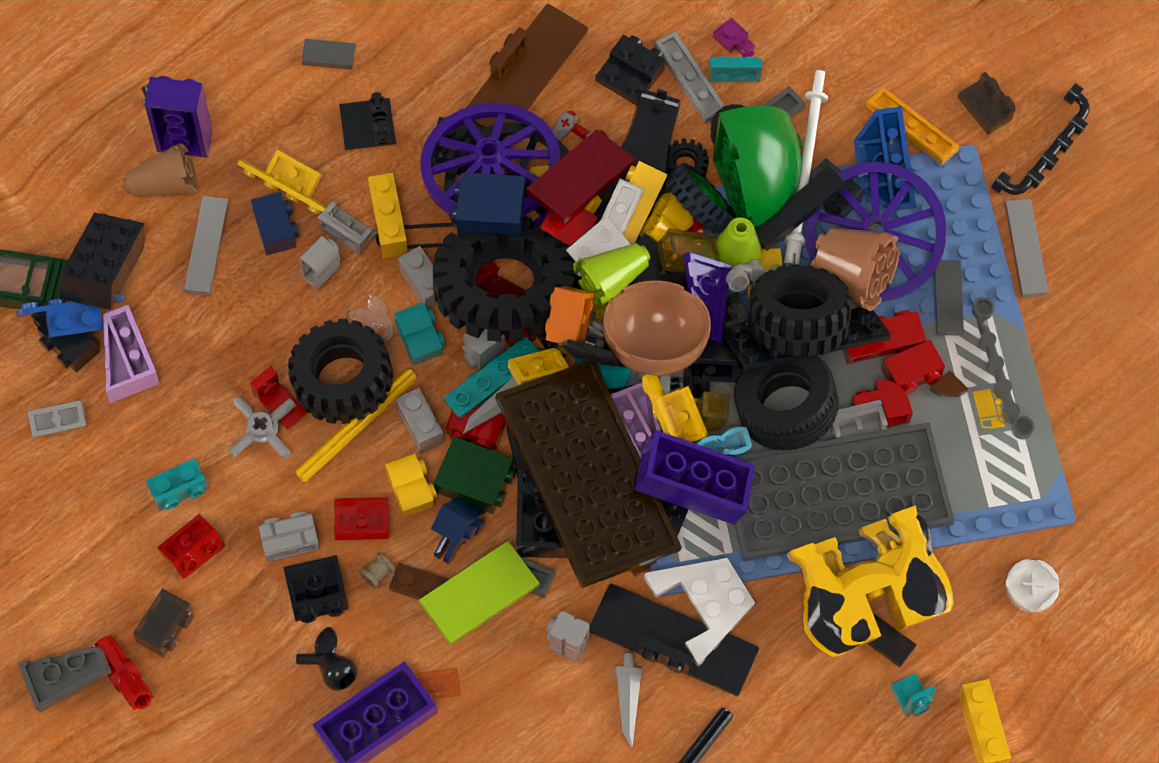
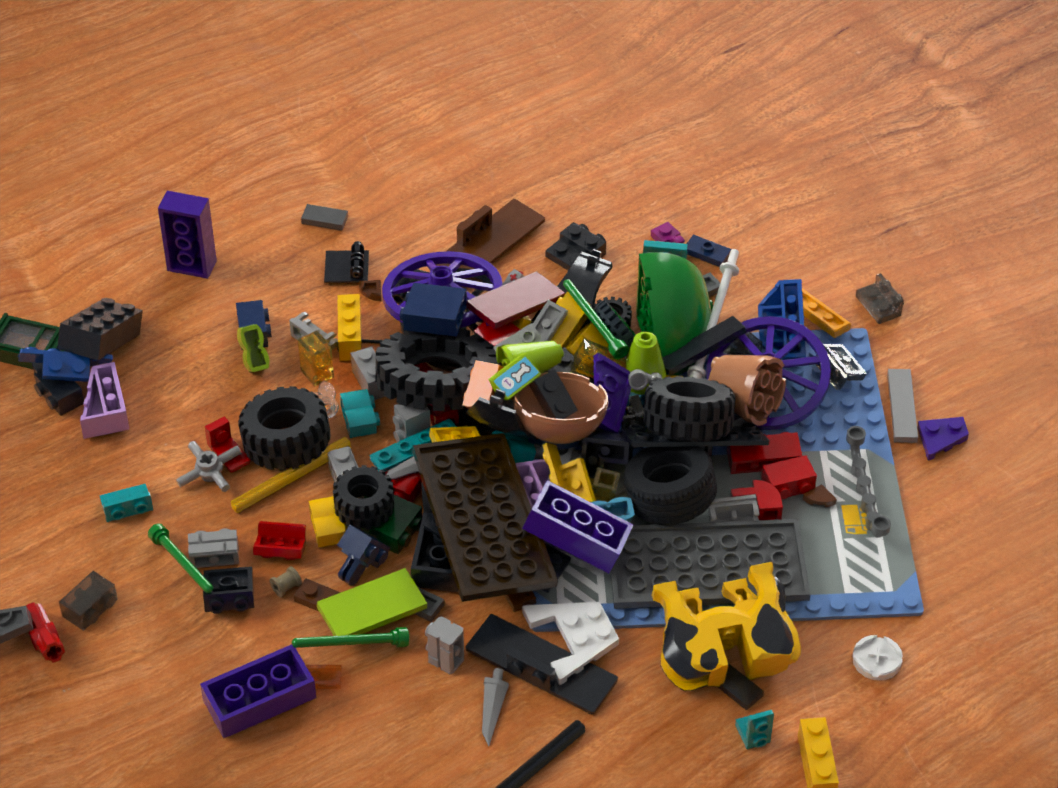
camera: 10 degrees right, 20 degrees down
(57, 419) = (35, 440): light grey hinge -> none
(163, 175) = (167, 281): medium nougat cone -> none
(191, 546) = (128, 548): red bracket -> none
(206, 246) = (192, 337): light grey tile -> none
(226, 527) = (160, 536): none -> green piece
(283, 263) = (254, 354): none -> lime brick
(290, 176) = (273, 292): yellow bracket -> none
(320, 262) = (283, 351): light grey brick -> none
(336, 670) = (231, 651): black piece -> none
(358, 268) = (315, 358): none -> clear yellow brick
(401, 153) = (371, 289): none -> reddish brown tile
(449, 441) = (358, 483): none -> black tyre
(513, 627) = (397, 637): none -> green piece
(602, 306) = (514, 376): none -> slope
(647, 319) = (553, 396): none -> black brick
(689, 76) = (622, 255): light grey tile -> none
(707, 235) = (617, 347): none -> green piece
(782, 53) = (707, 250): none -> dark blue plate
(949, 298) = (827, 431): dark grey tile -> none
(957, 206) = (842, 366): none -> clear smoke bracket
(1049, 158) = (930, 343): black bar -> none
(1073, 283) = (942, 434): none -> dark purple wing

